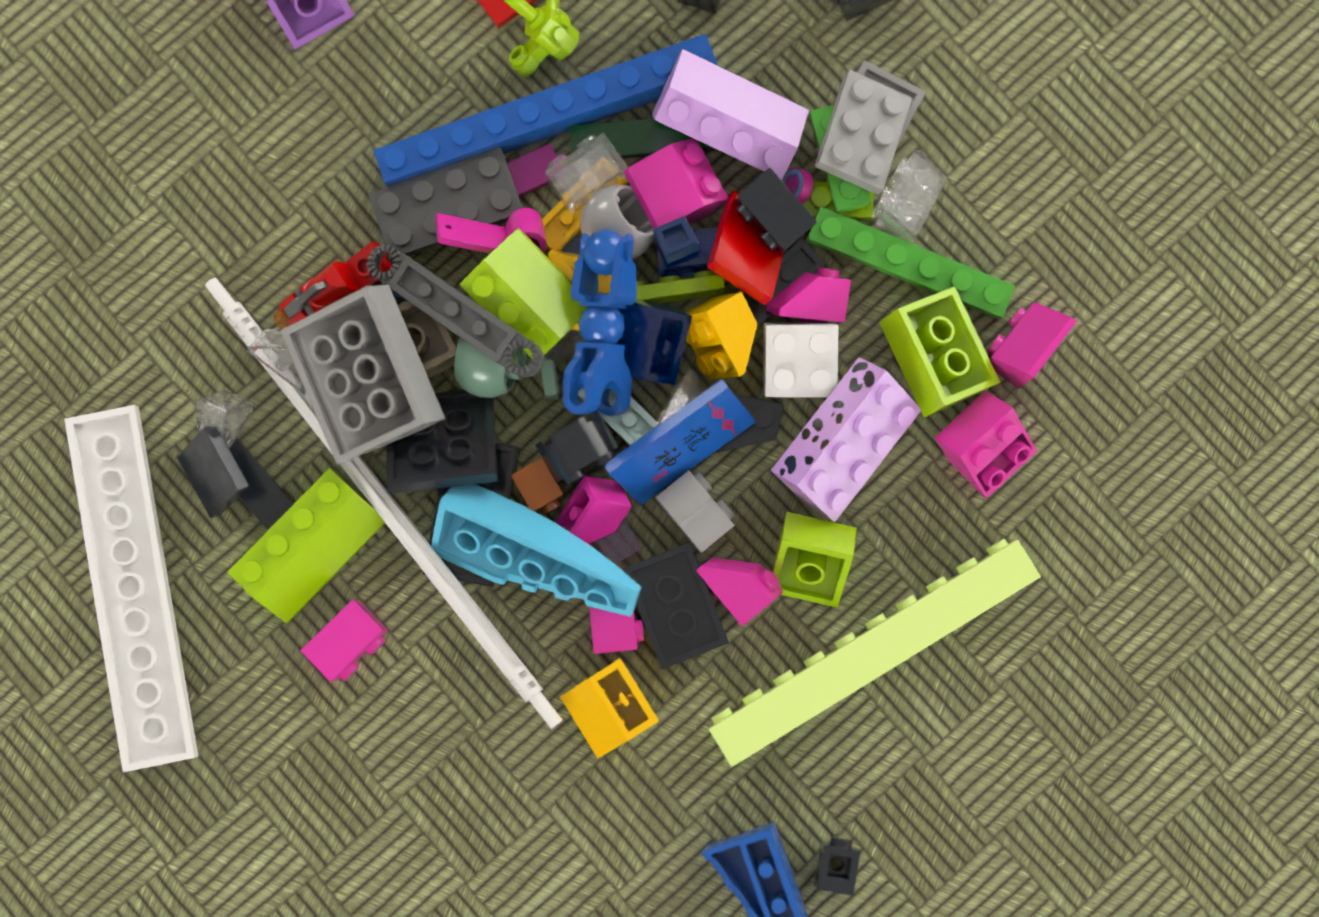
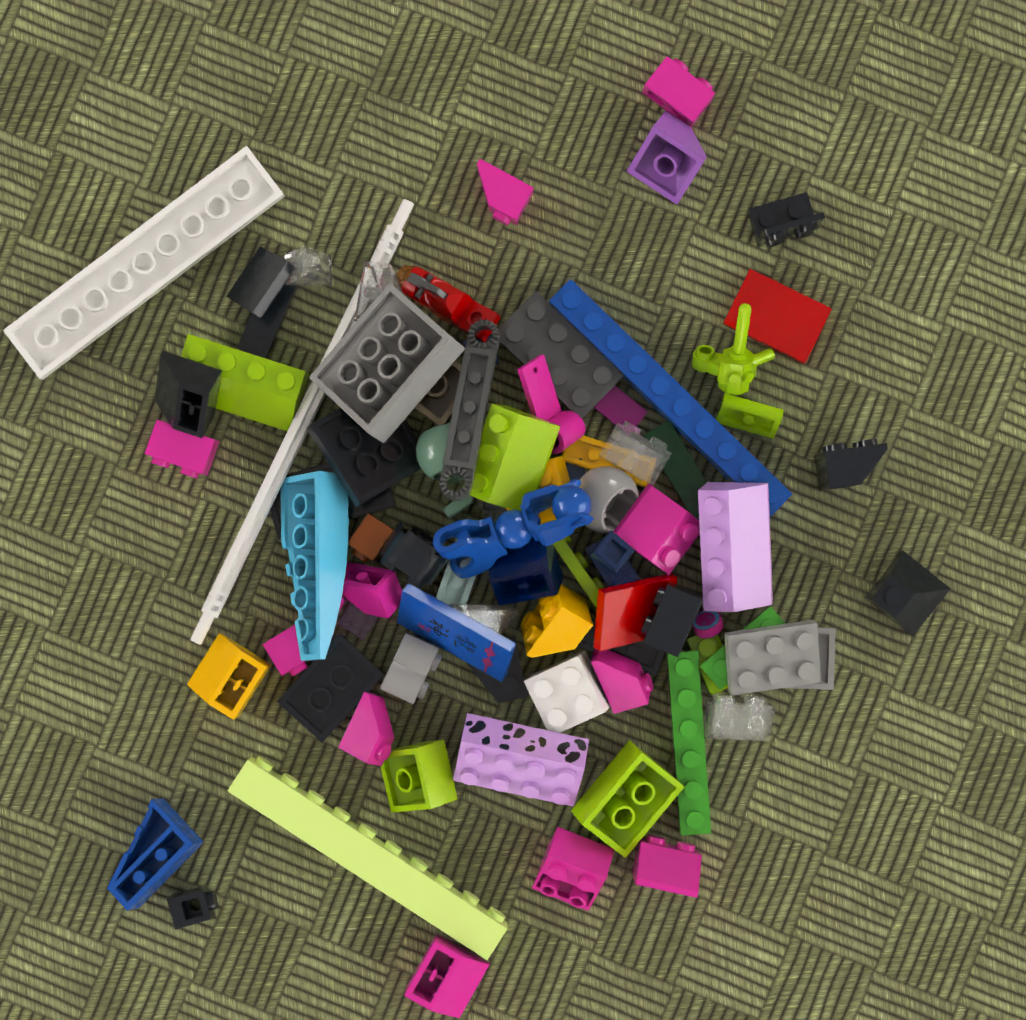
camera: 65 degrees right, 5 degrees up
(250, 180) = (504, 193): none -> dark pink slope
(288, 604) = (187, 393): none -> black slope
(605, 42) = (749, 416): none -> lime plate
(1038, 631) = (446, 977): none -> dark pink slope

